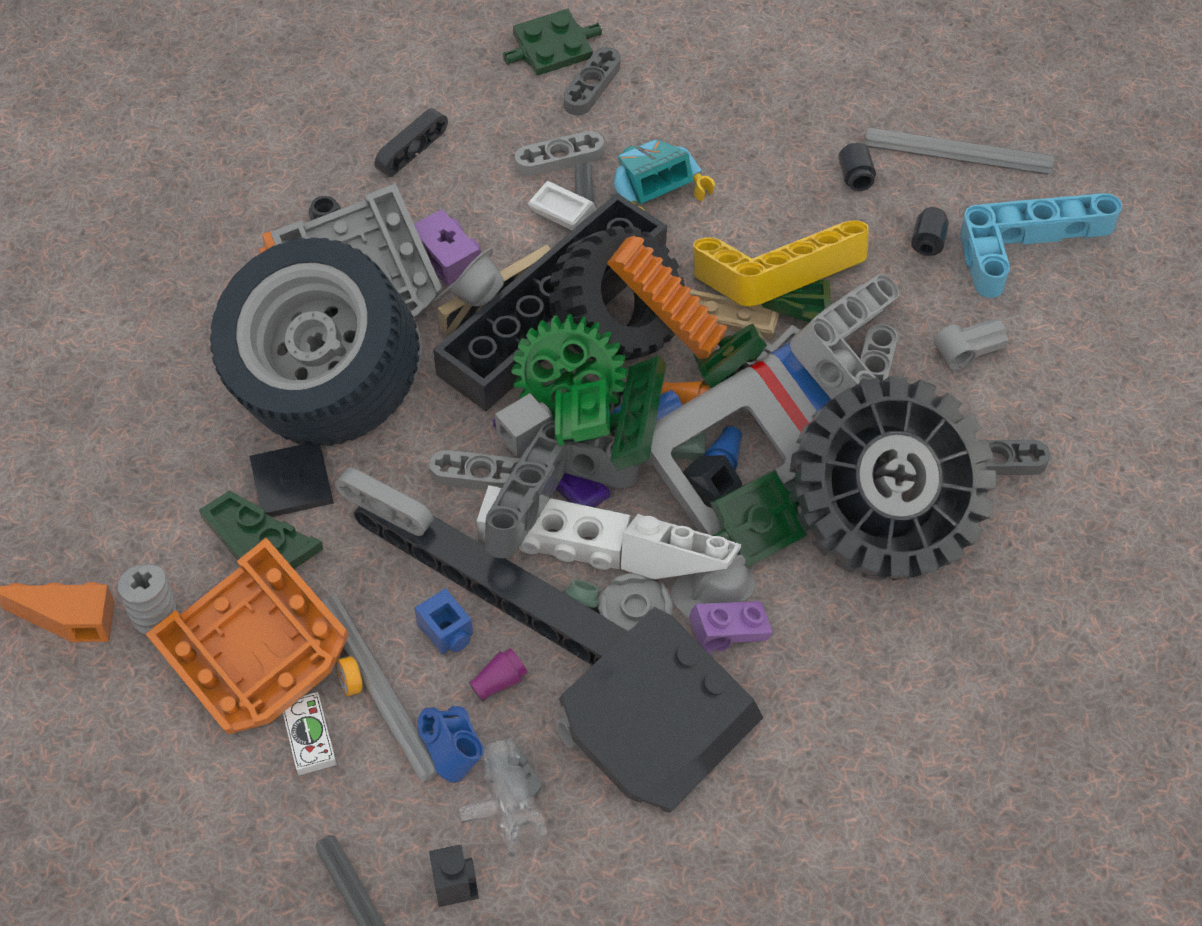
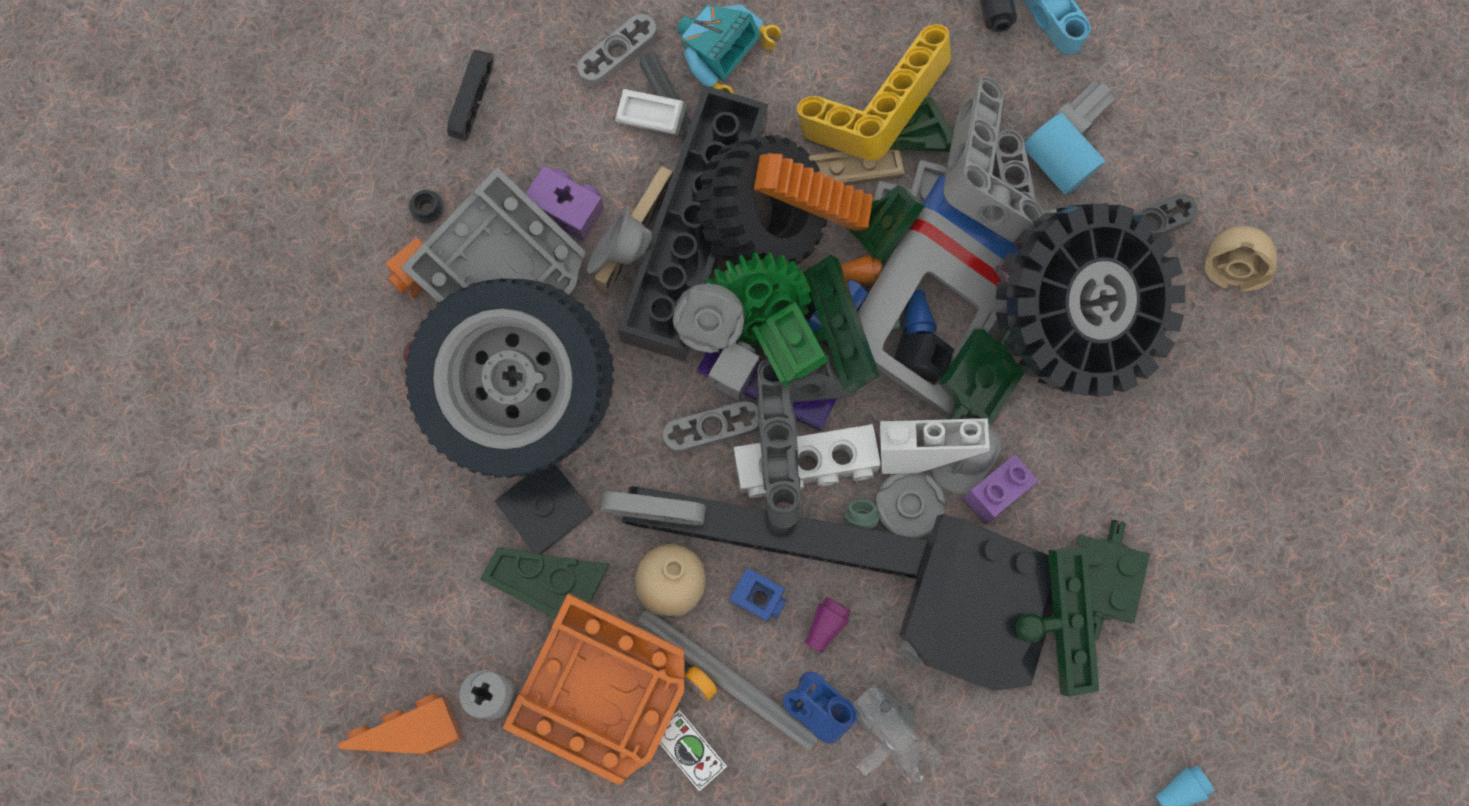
camera: 25 degrees left, 20 degrees up
(370, 577) = (670, 580): none -> tan cylinder
(517, 360) = (708, 317): none -> light grey tile
(739, 759) = (1071, 621): none -> dark green plate
(798, 747) = (1115, 576): none -> dark green plate
(934, 359) = (1063, 154): none -> medium azure brick
(1070, 511) = (1241, 258): none -> tan cylinder

